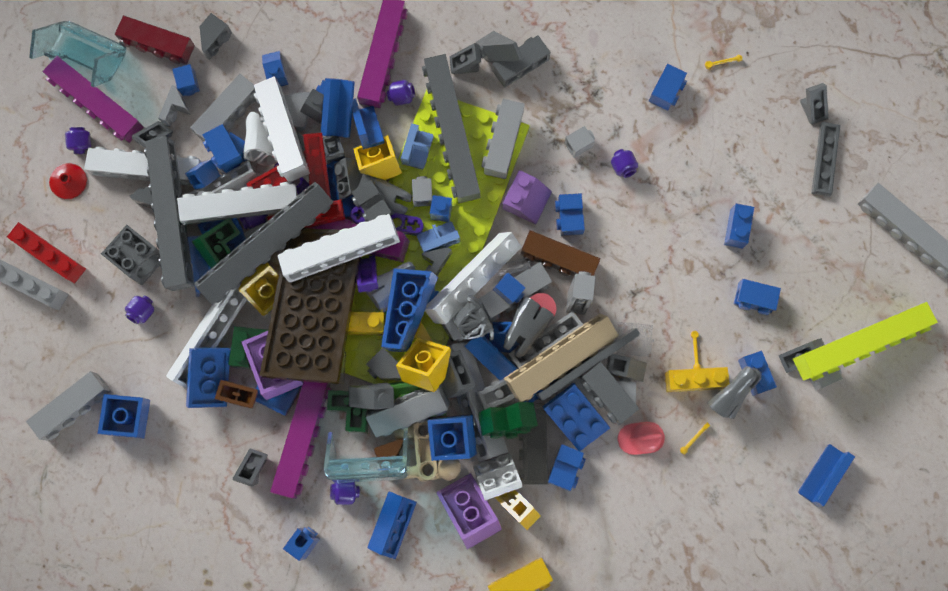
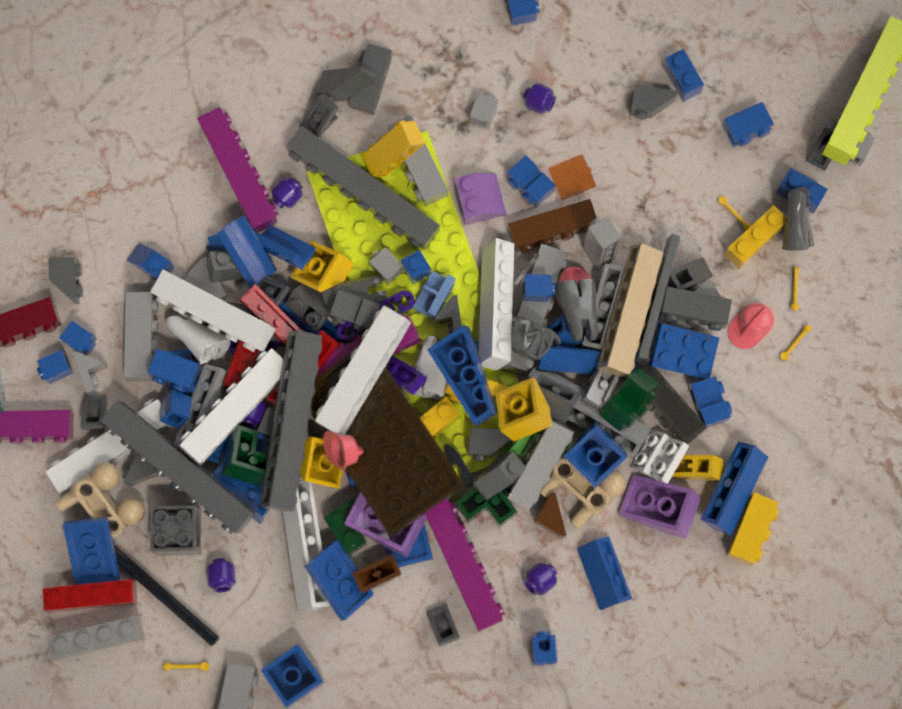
camera: 40 degrees left, 0 degrees up
(70, 224) = (91, 550): none -> blue plate
(73, 186) = (46, 530): red dish -> none
(78, 140) = (26, 473): dark purple head -> none
(79, 361) = (204, 666): none -> yellow hinge
(93, 287) = (166, 598): none -> black axle
(102, 198) = (98, 502): none -> tan piece
(155, 86) = (54, 367): none -> blue brick
(280, 290) = (341, 449): none -> coral piece
(353, 360) = (456, 461): none -> black slope
(366, 468) = (548, 538): clear light blue windscreen -> none
(416, 147) = (346, 230): medium blue panel -> none
(492, 115) = (393, 148): none -> yellow brick
(531, 543) = (734, 488): none -> blue brick
(602, 235) = (572, 177): none -> clear orange piece
(646, 479) = (785, 355): none -> yellow hinge
(701, 225) = (650, 101): none -> dark grey slope

